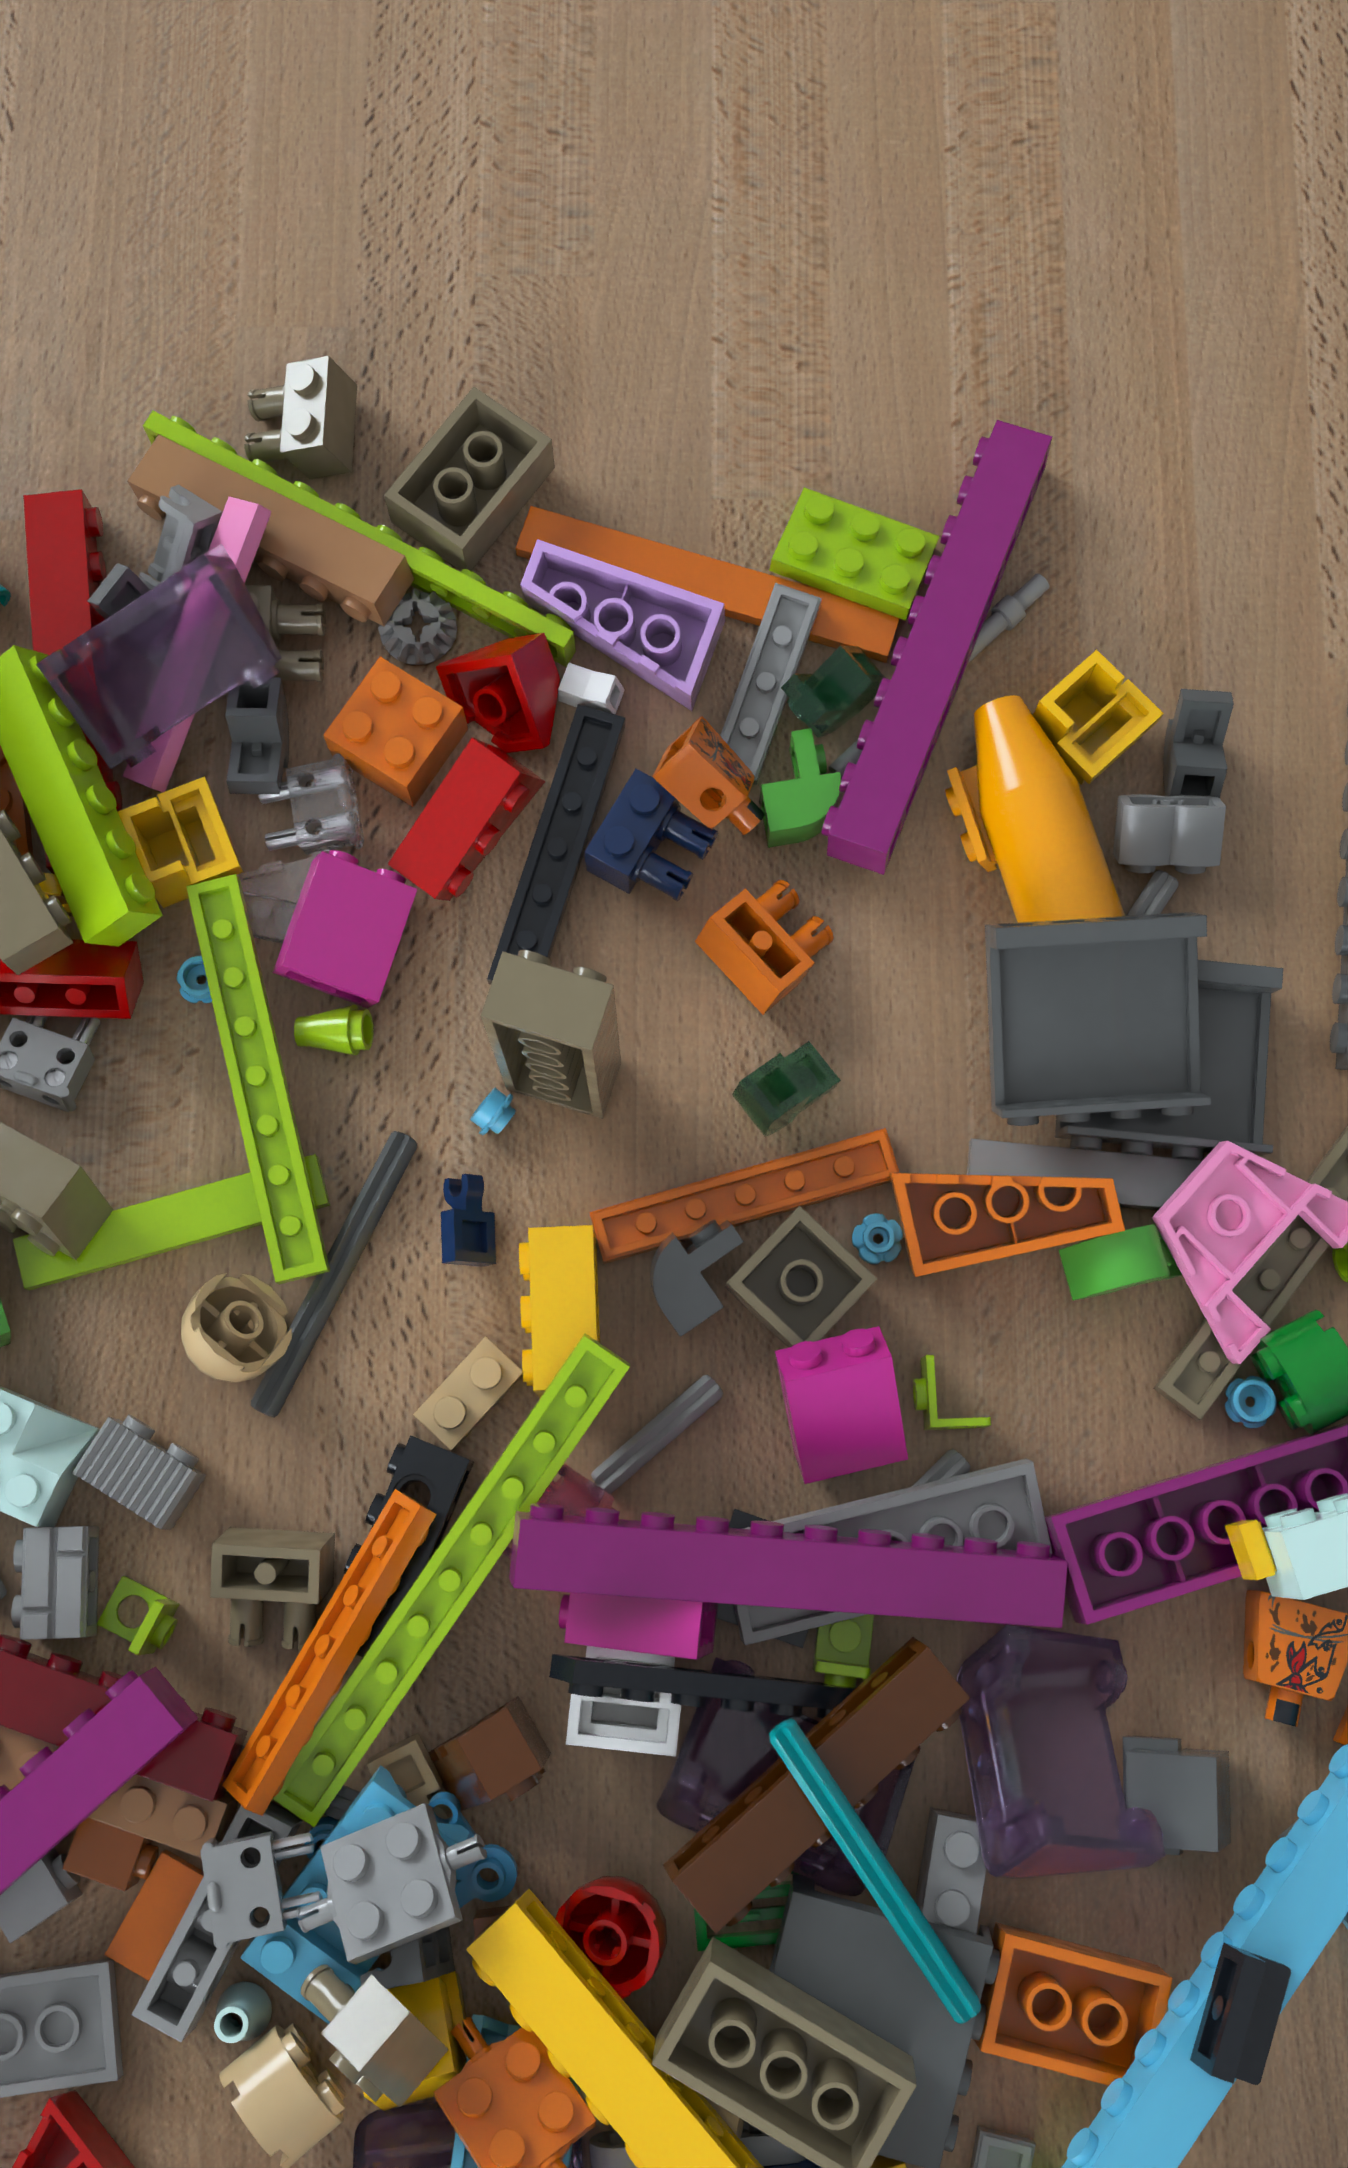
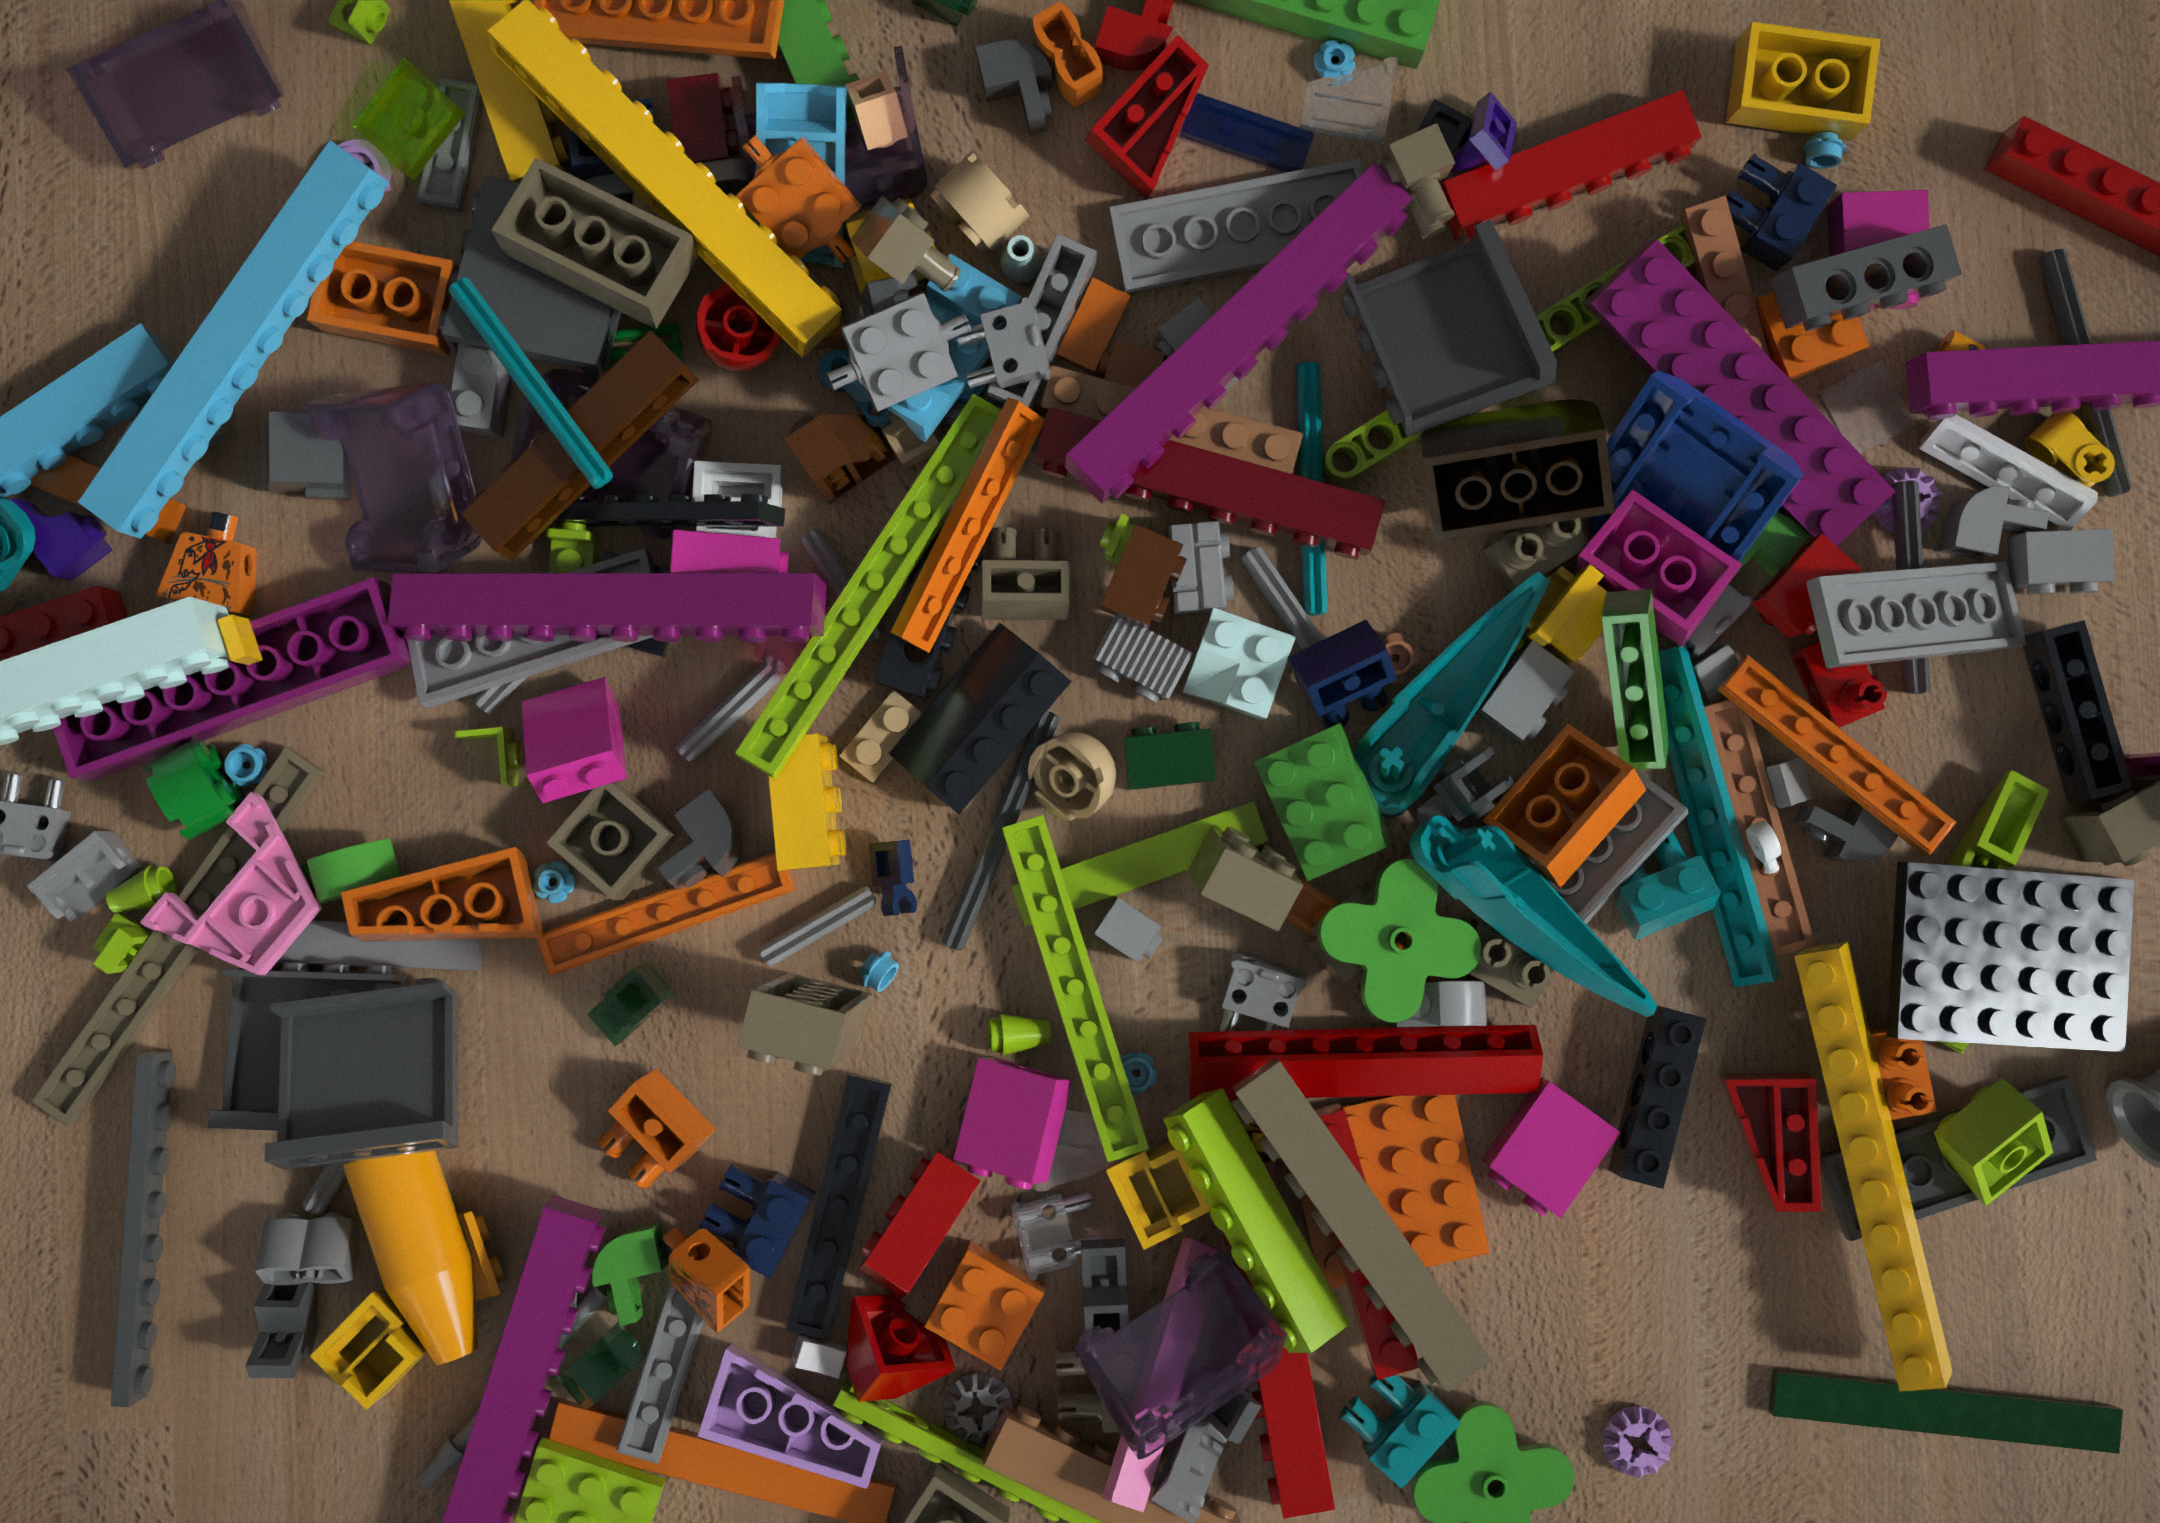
camera: 175 degrees right, 10 degrees up
(115, 1569) = (1142, 577): none -> reddish brown brick
(120, 1345) = (1169, 758): none -> dark green brick
(190, 1142) = (1129, 931): none -> light grey brick
(342, 1408) = (979, 717): none -> black slope
(519, 1612) = (832, 569): none -> light grey axle
(563, 1169) = (817, 925): none -> light grey axle
(1240, 2015) = (249, 292): black panel -> none

